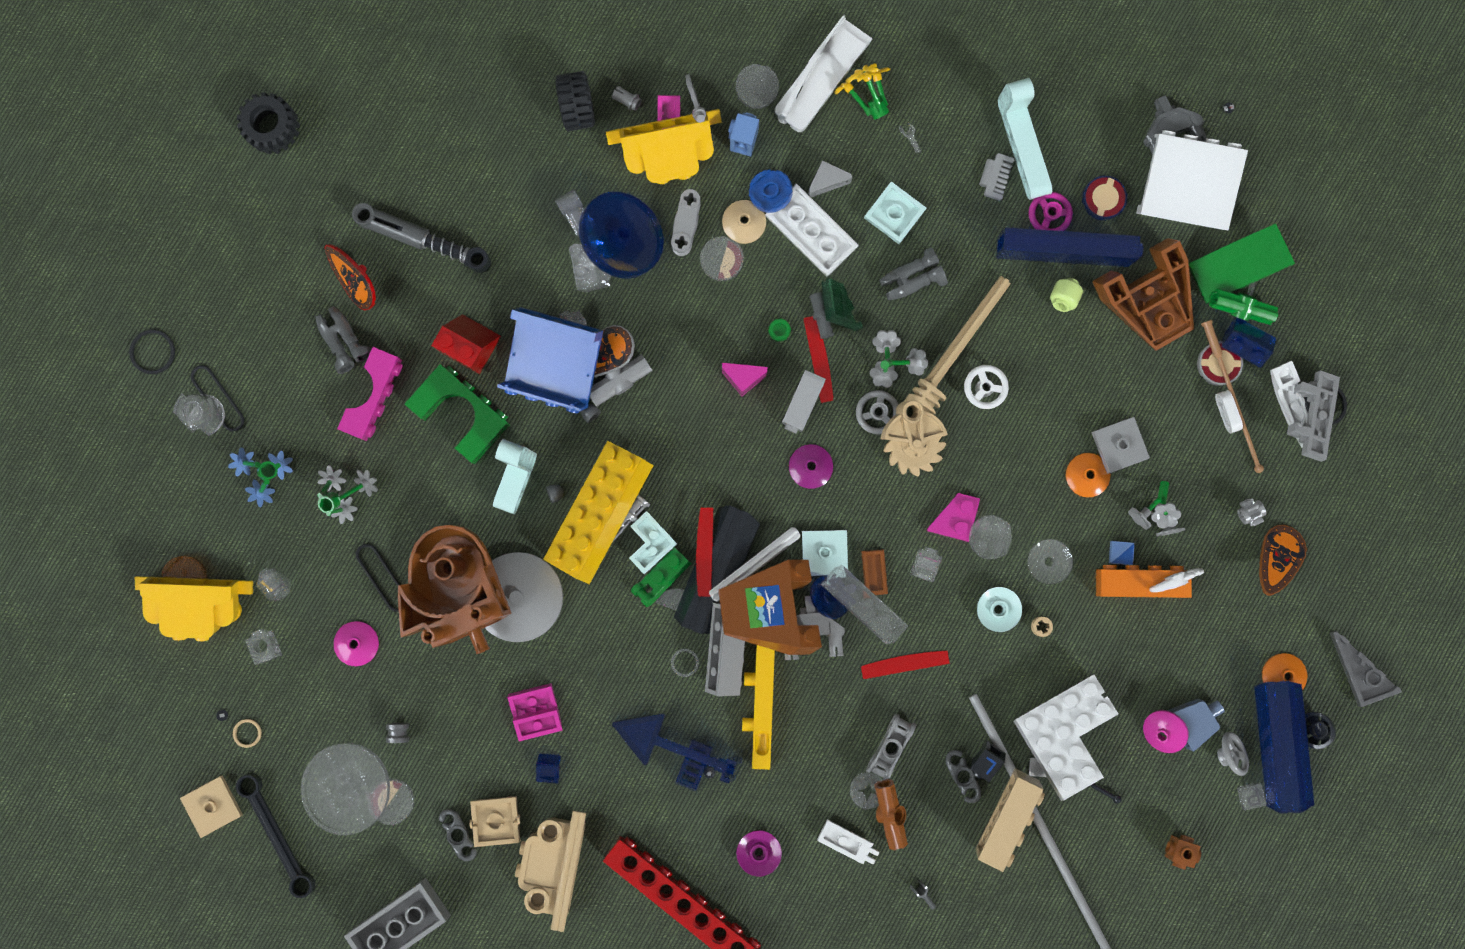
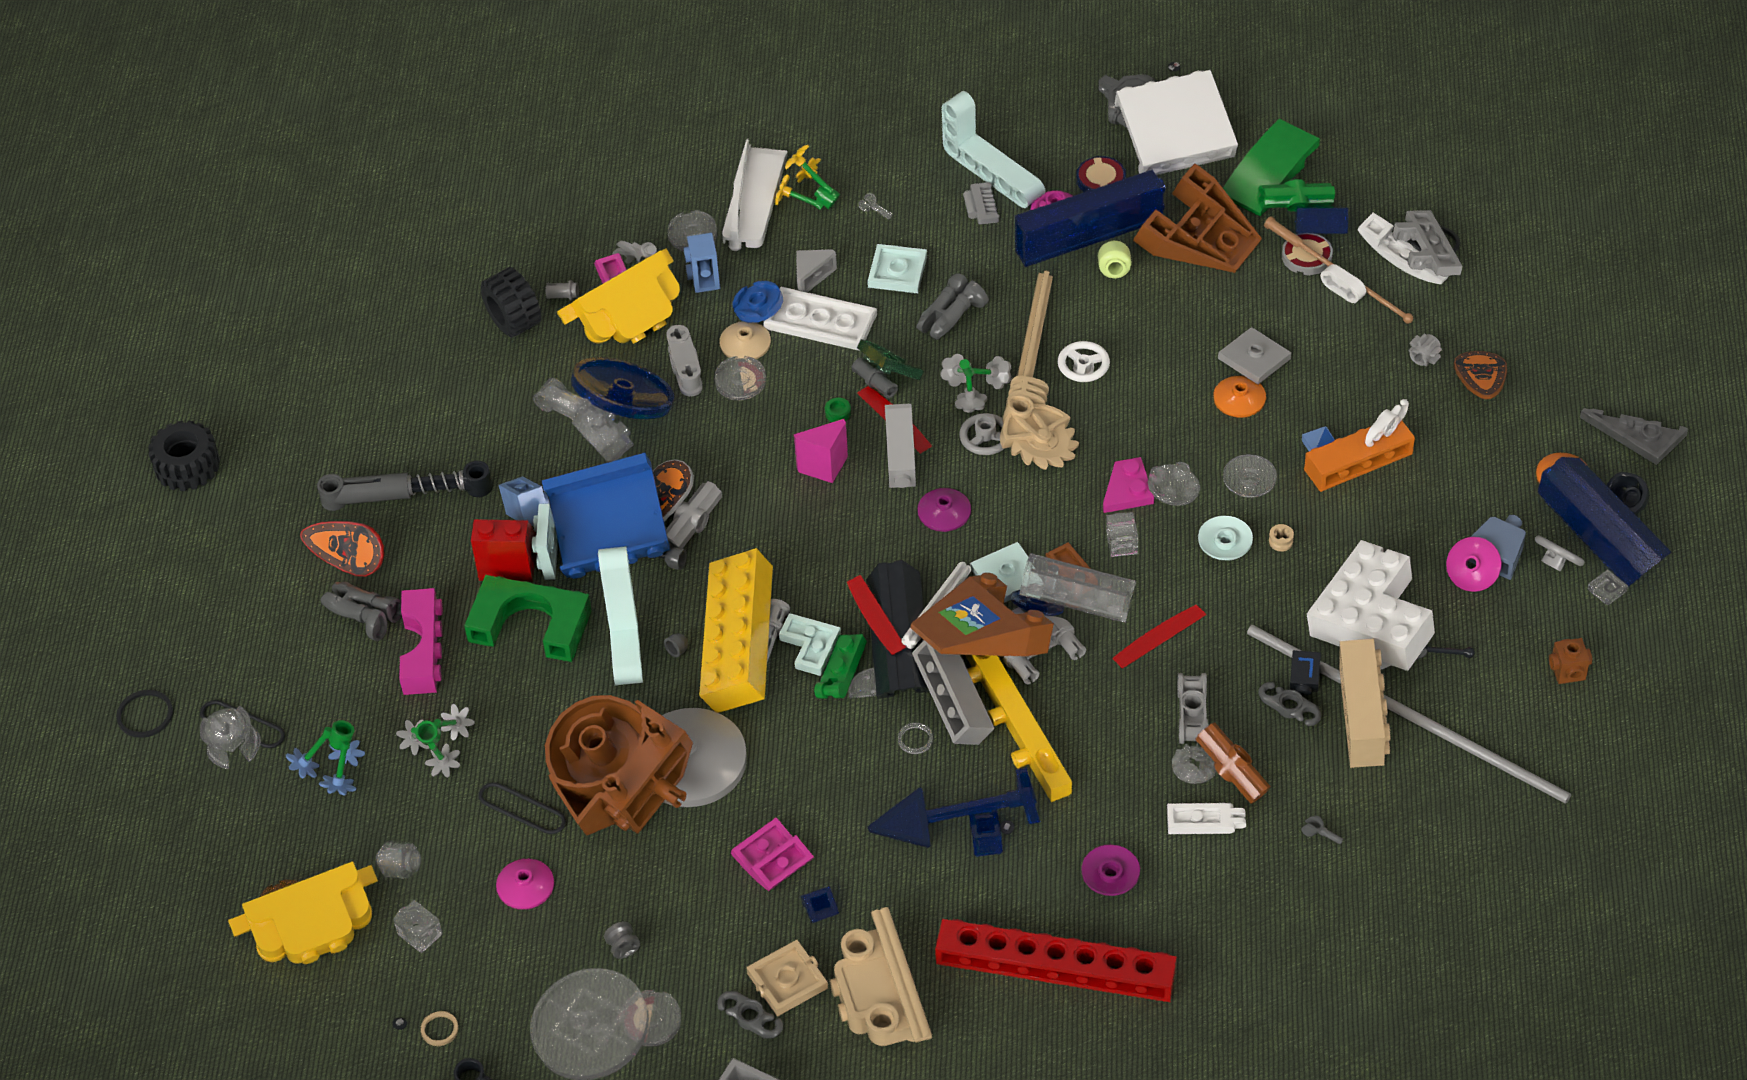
camera: 20 degrees left, 35 degrees down
(496, 359) = (545, 541): none -> light aqua plate
(498, 308) = (522, 498): none -> medium blue brick
(1164, 514) = (1333, 370): light grey plant -> none

